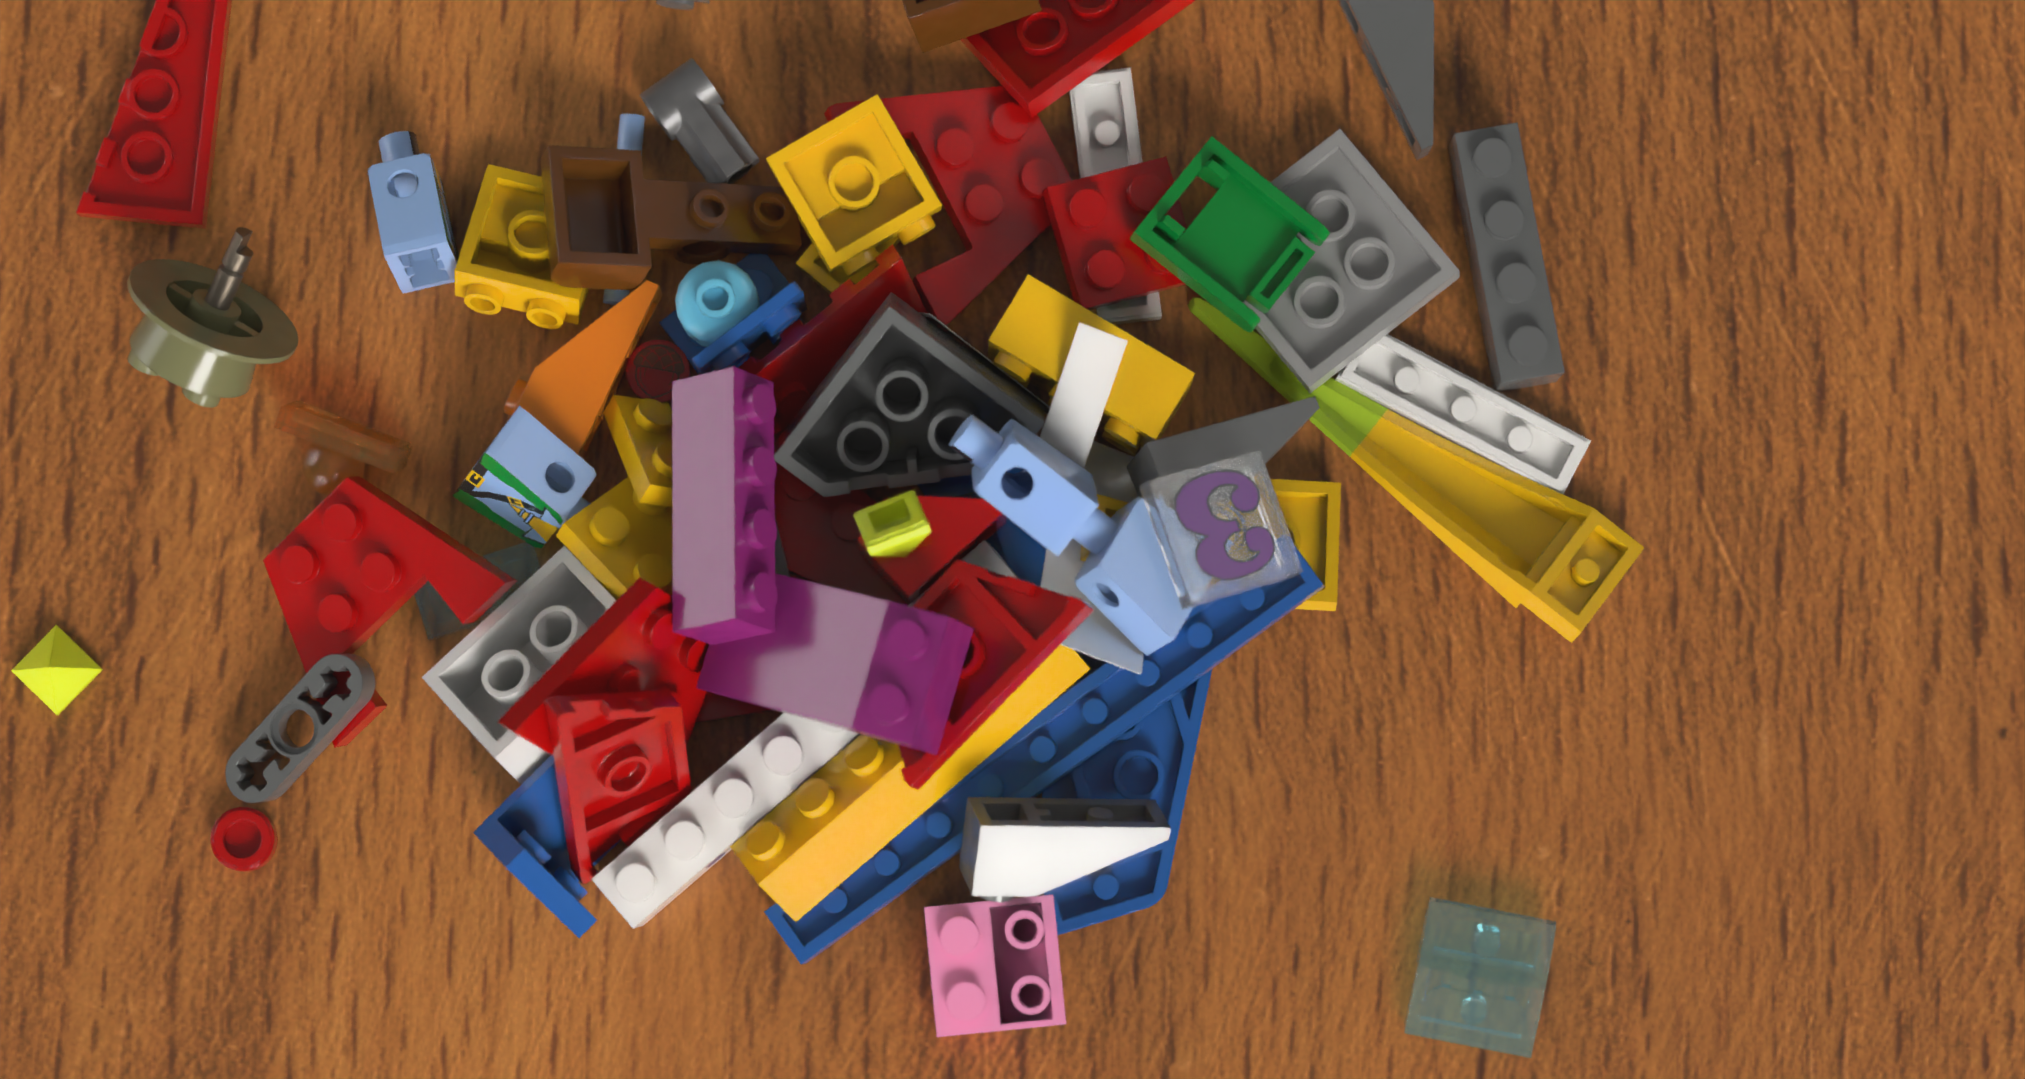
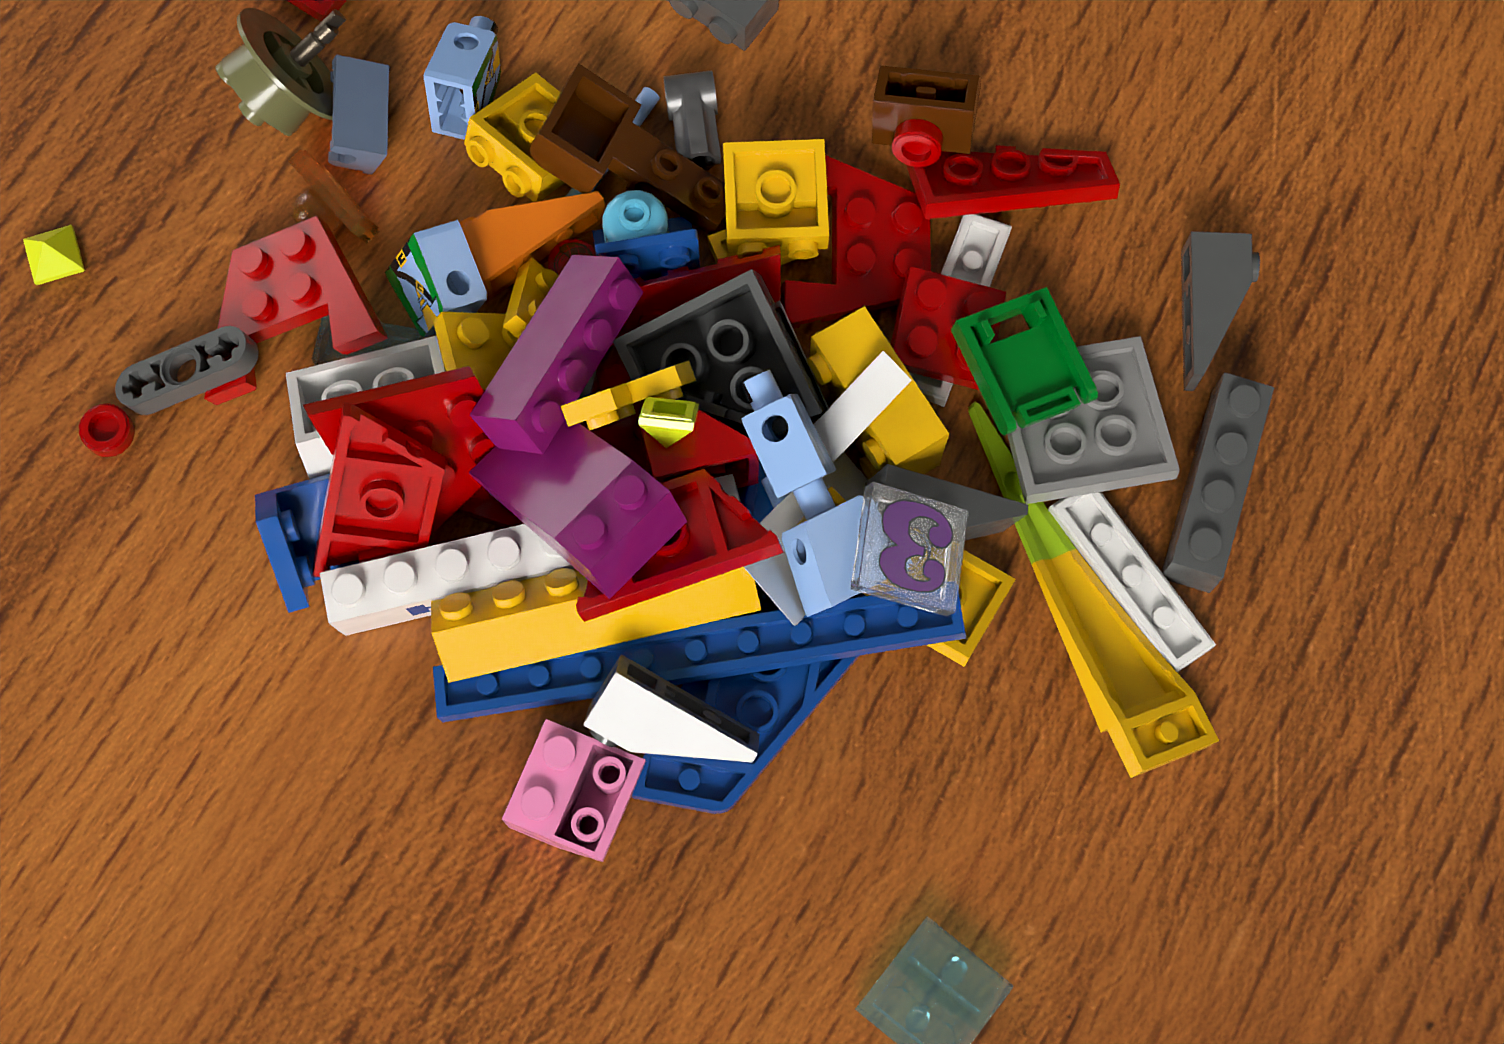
camera: 30 degrees right, 10 degrees down
(320, 323) = (359, 114): none -> sand blue hinge
(813, 533) = (617, 401): none -> yellow plate
(978, 33) = (917, 143): none -> red tile

